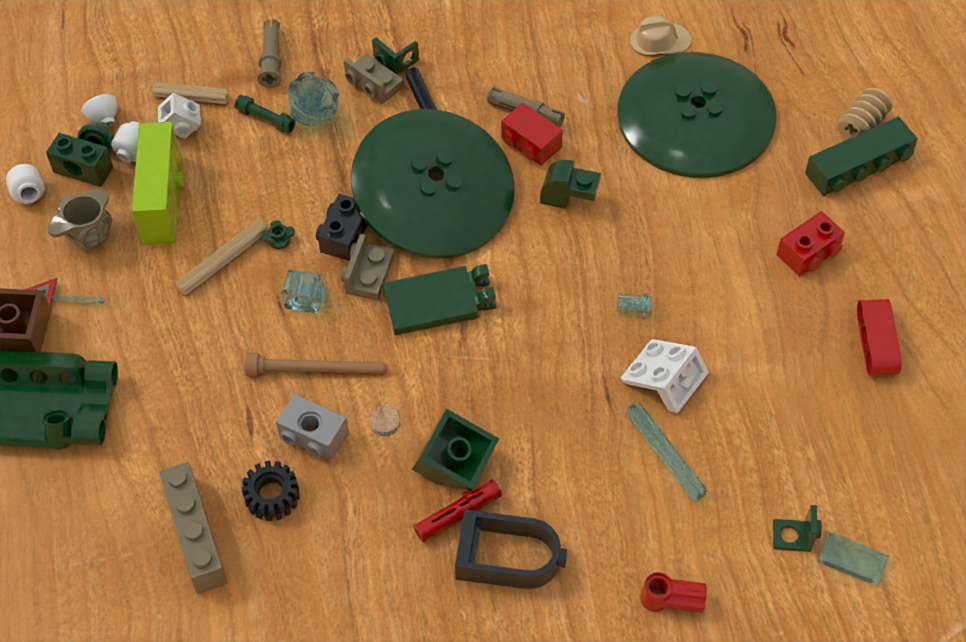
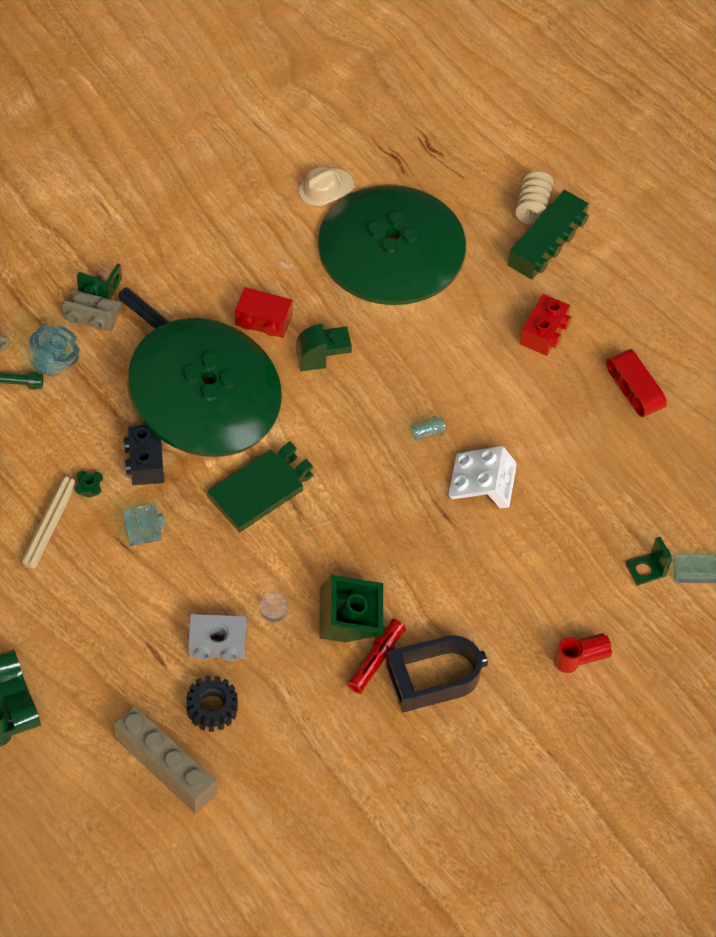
camera: 30 degrees left, 0 degrees up
(258, 364) = (137, 603): medium nougat piece -> none
(367, 269) = (187, 484): dark tan bracket -> none
(512, 101) = (235, 289): dark tan pin -> none
(666, 451) = (516, 541): clear light blue axle -> none

